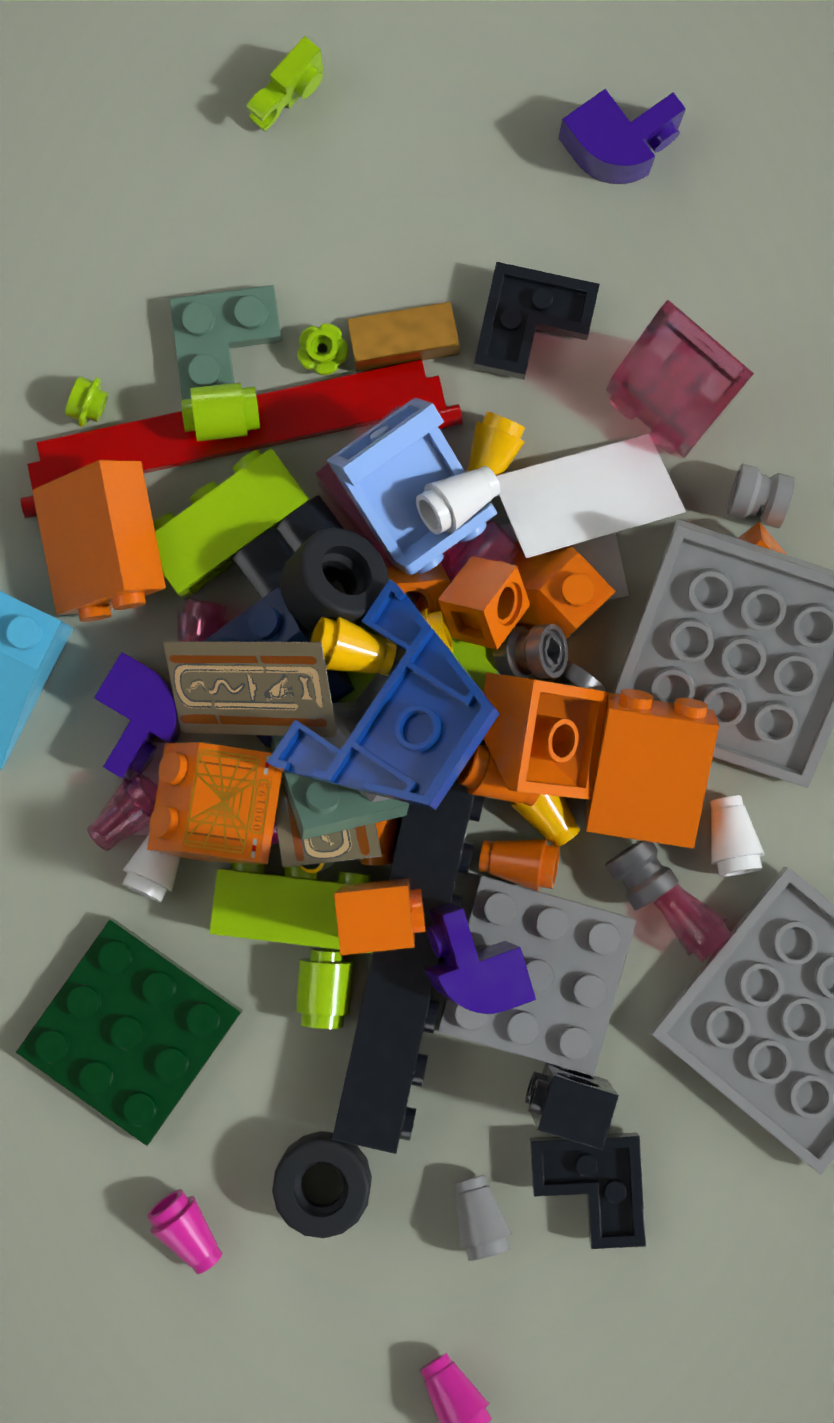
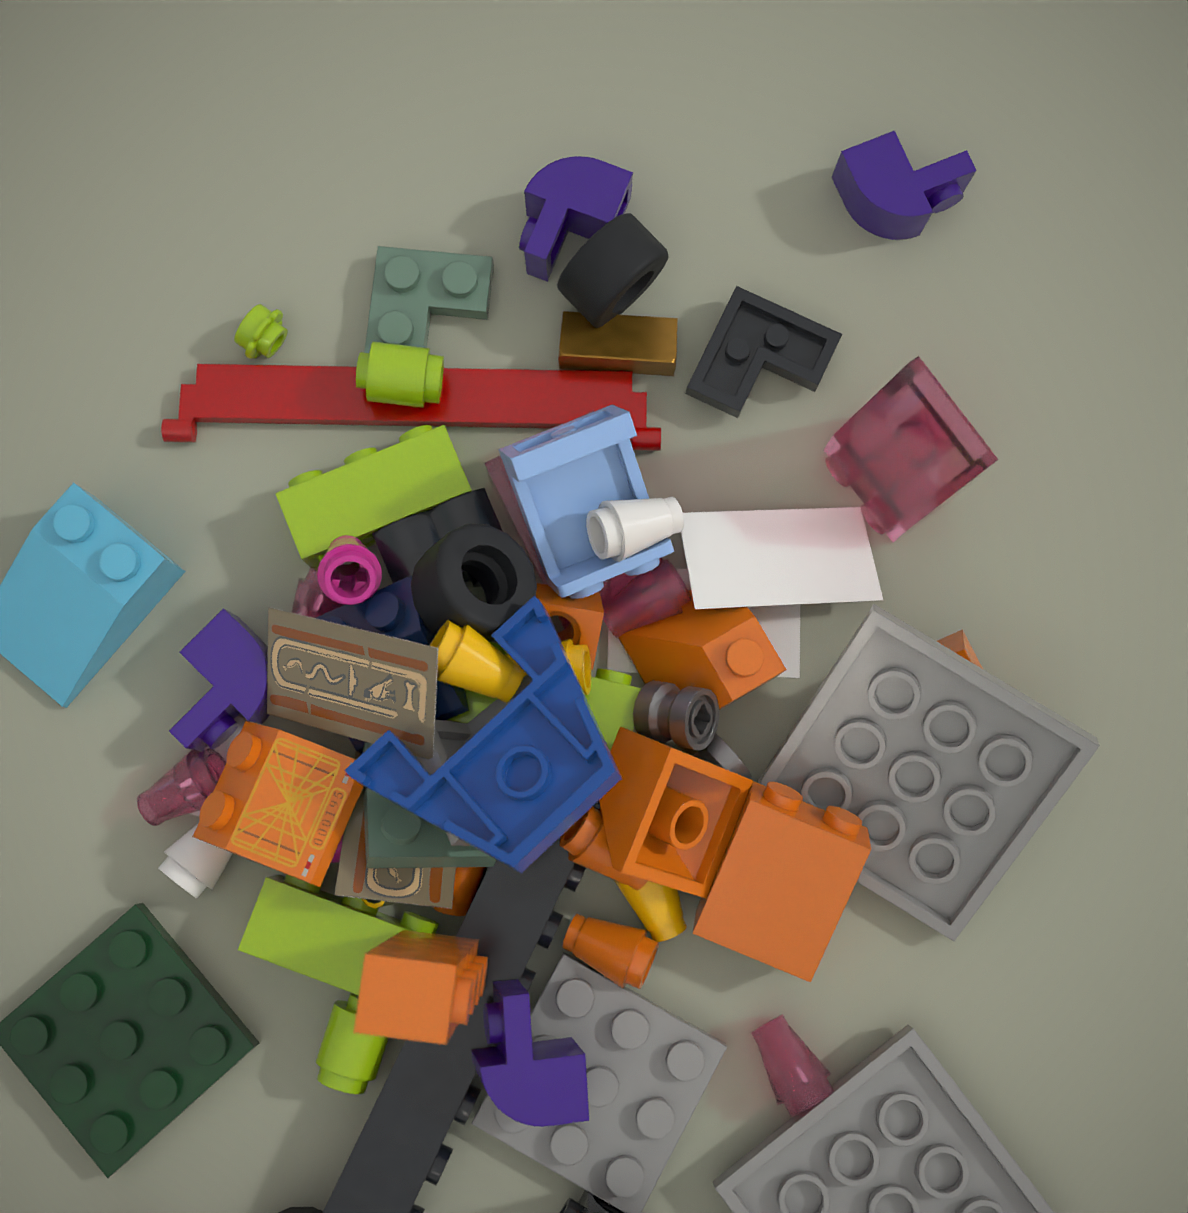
camera: 10 degrees right, 5 degrees down
(99, 539) = (231, 480): orange brick -> none
(225, 594) = (349, 582): none -> dark pink cone
(293, 78) = (563, 51): lime plate -> none
(326, 362) = (530, 350): lime plate -> none
(332, 213) = (571, 197): none -> dark purple brick
(384, 273) = (612, 269): none -> black tyre
(484, 602) = (636, 647): orange brick -> none
(495, 443) = (691, 477): yellow cone -> none
(641, 873) = (744, 996): flat silver wheel -> none
(733, 838) = (858, 979): white cone -> none
(760, 496) = (969, 602): light grey wheel -> none

